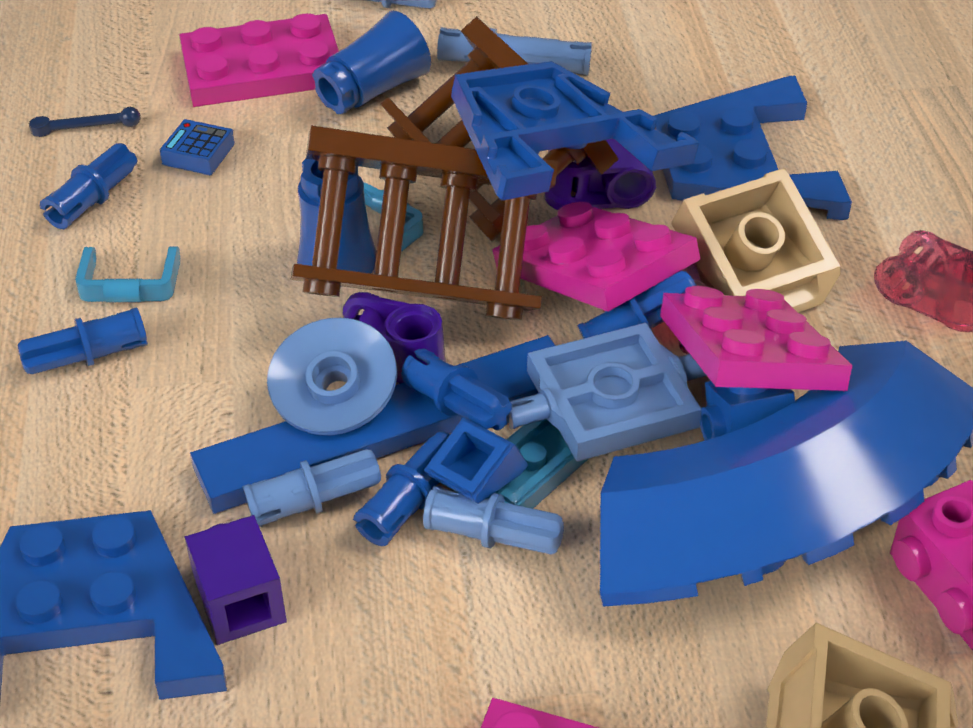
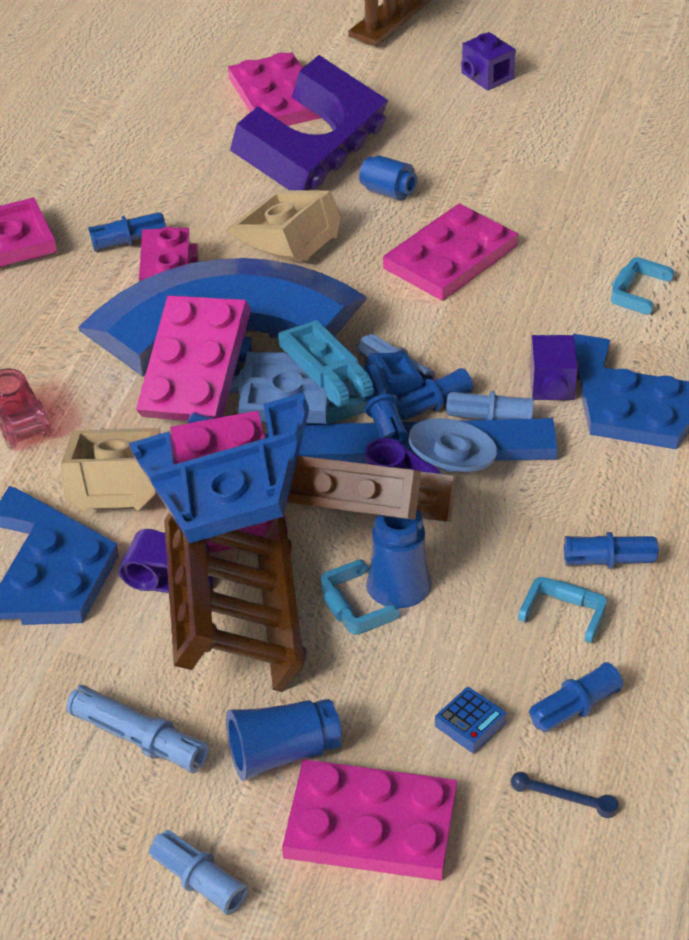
camera: 155 degrees left, 0 degrees up
(564, 384) = (326, 361): none -> dark azure hinge

